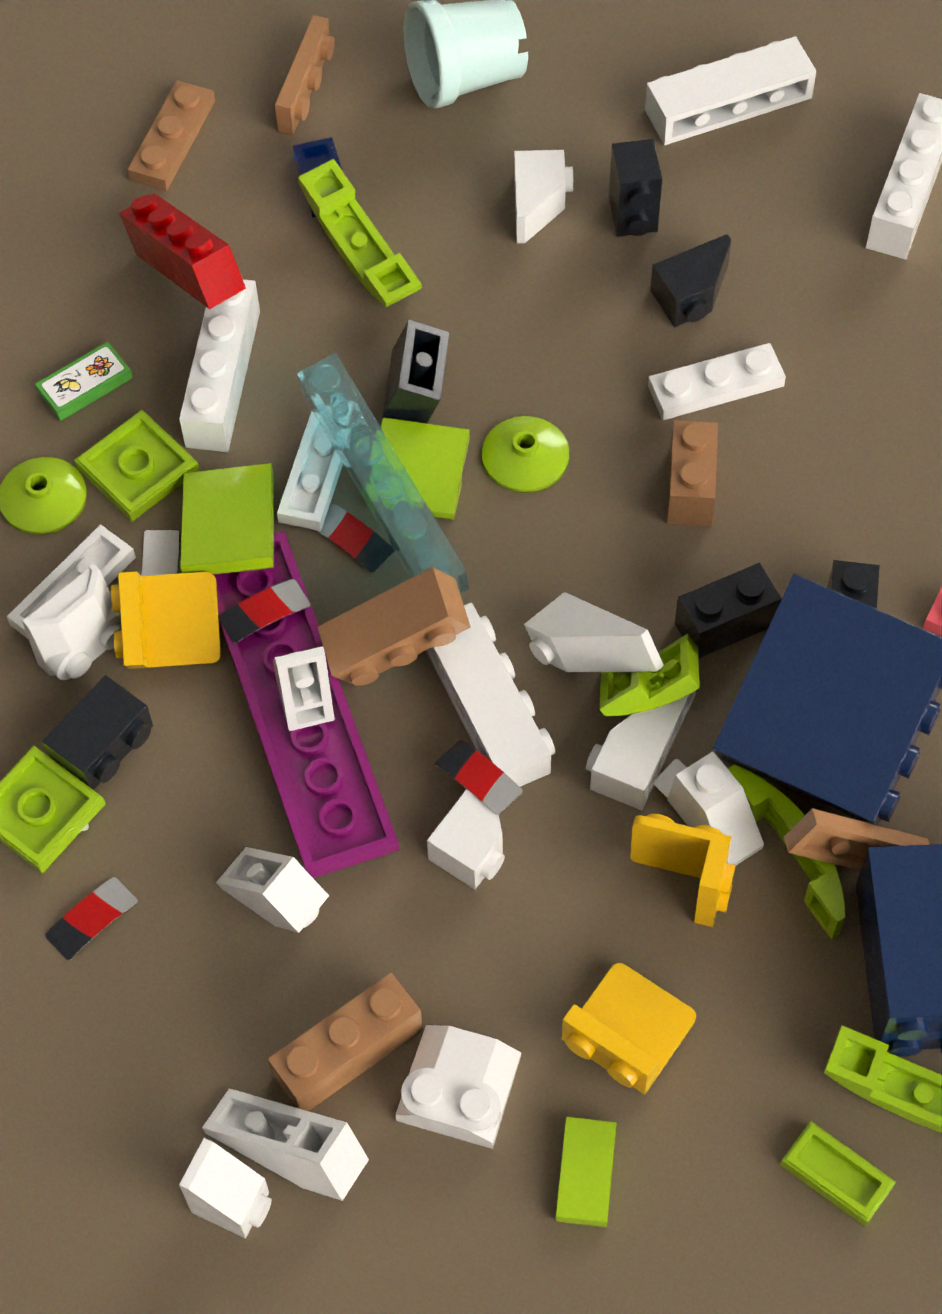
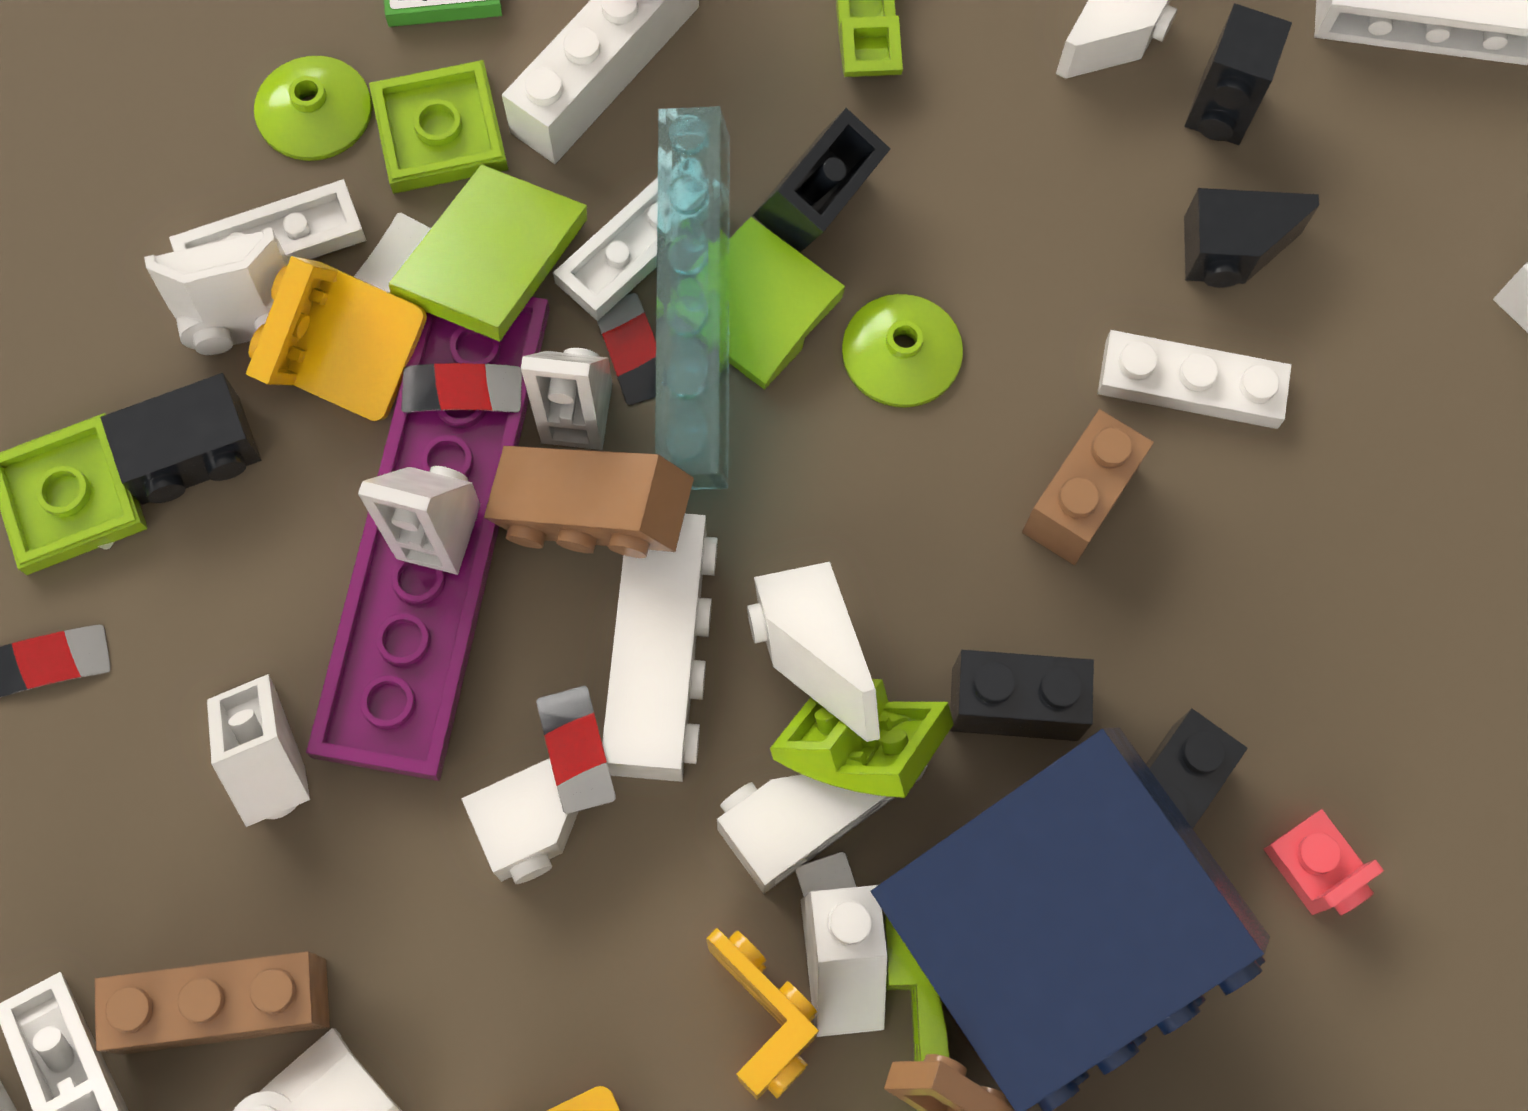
camera: 25 degrees right, 10 degrees up
(341, 574) = (569, 396): none -> white slope

